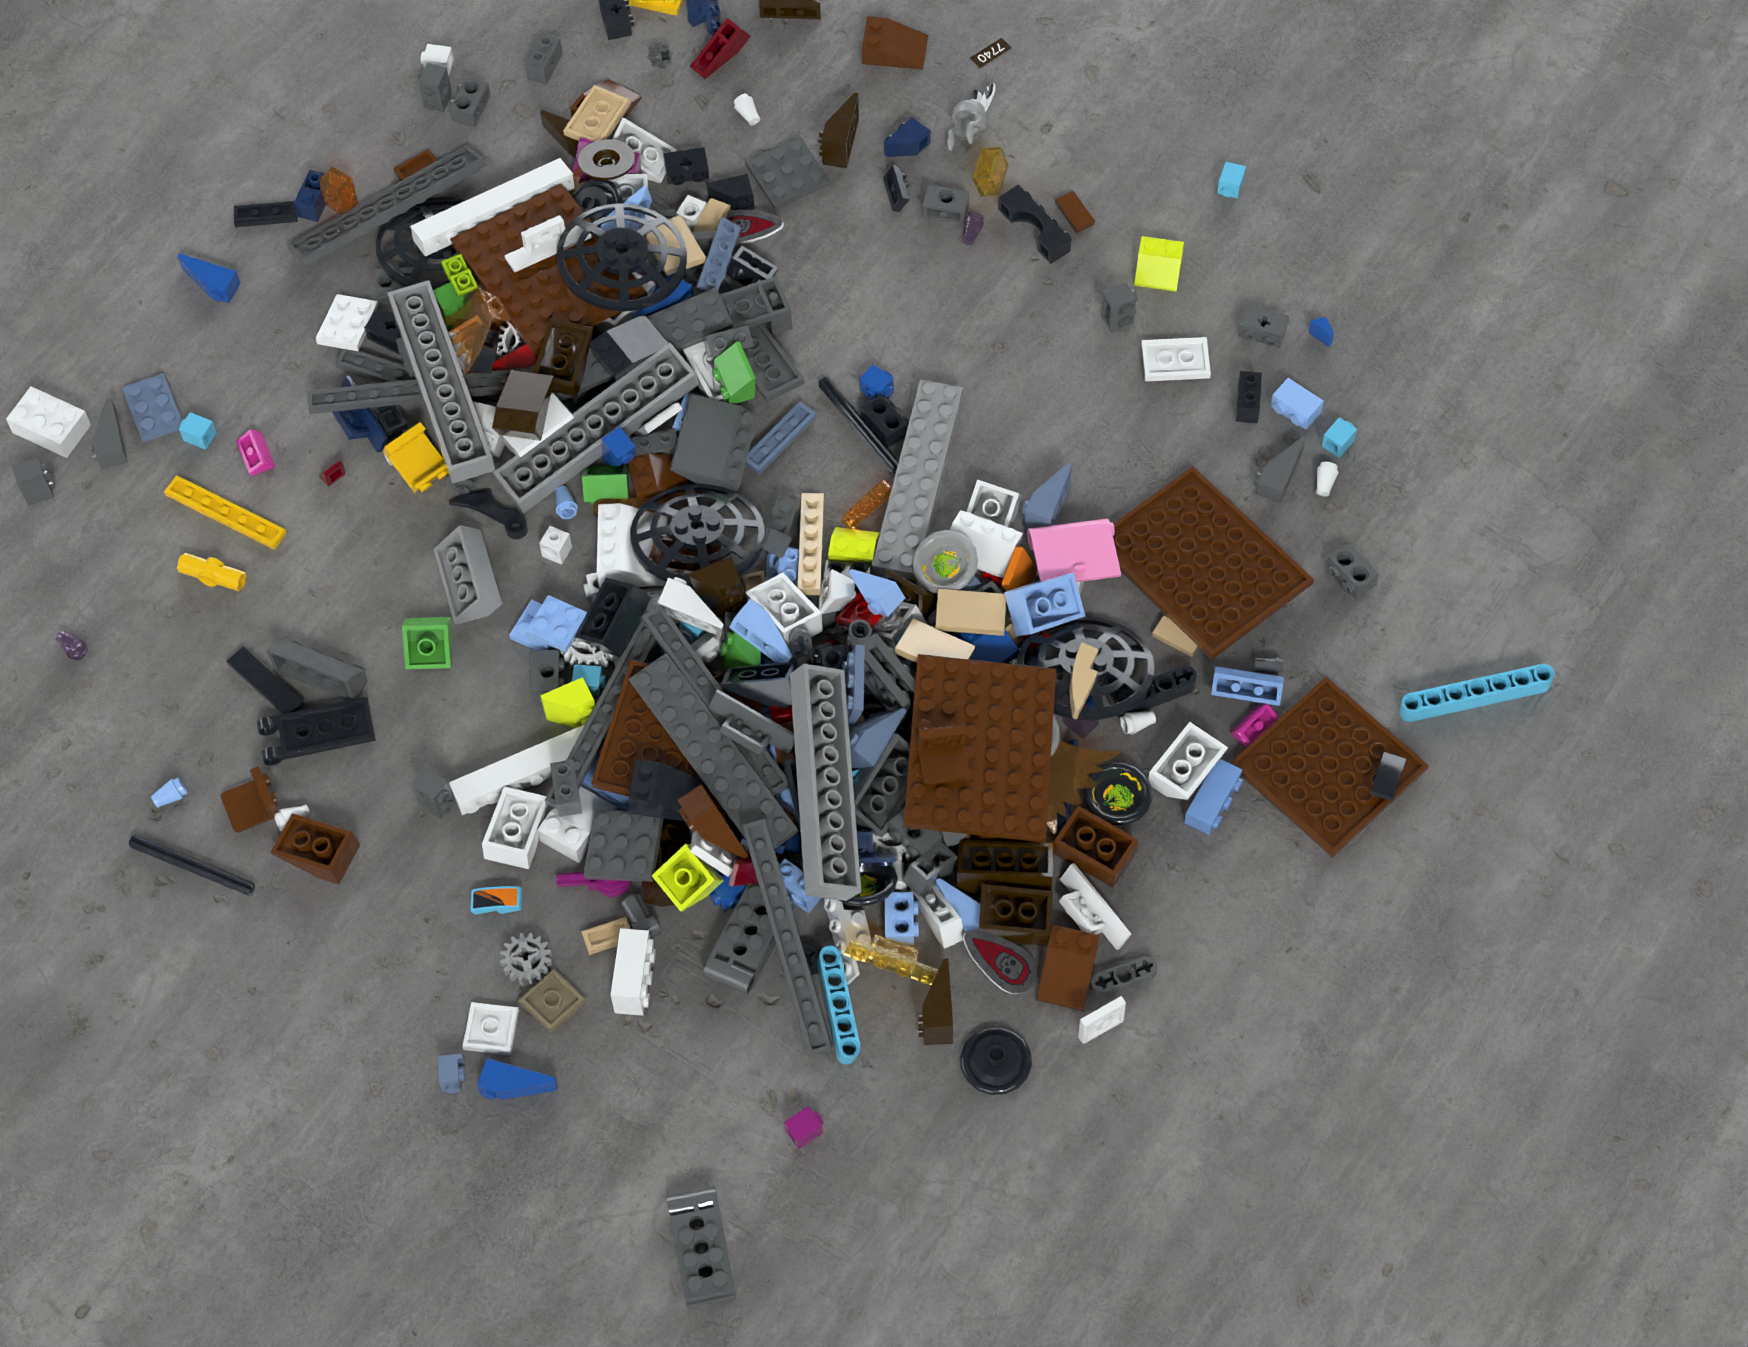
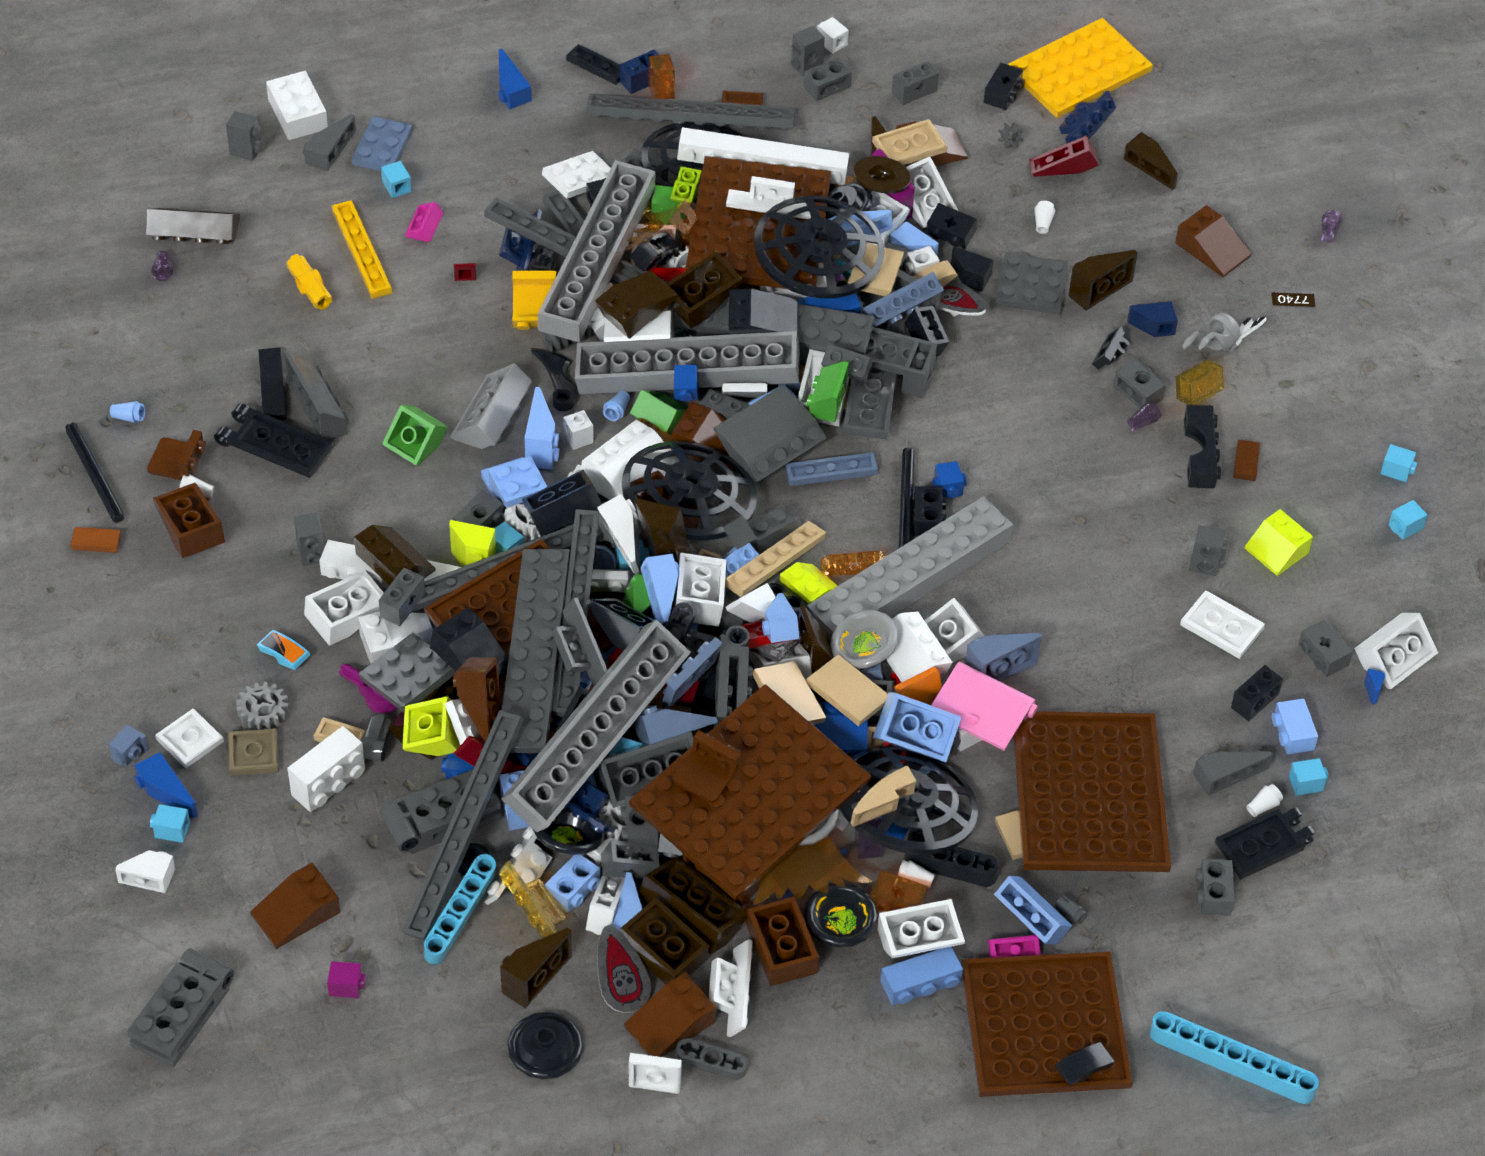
camera: 35 degrees right, 10 degrees down
(62, 590) = (192, 224): none -> slope
(250, 921) = (95, 539): none -> dark orange tile
(518, 760) = (389, 553): none -> dark brown slope
(533, 568) = (540, 434): none -> light blue slope
(547, 1109) = (170, 823): none -> medium azure brick
(568, 1160) = (148, 871): none -> white slope
(668, 197) = (912, 238): none -> light blue slope
(709, 1099) = (296, 906): none -> reddish brown slope
(1142, 746) = (896, 892): none -> clear orange brick
(1186, 138) = (1399, 463): none -> medium azure brick
(1312, 289) = (1397, 648): none -> white slope
(1352, 511) = (1264, 841): none -> black tile

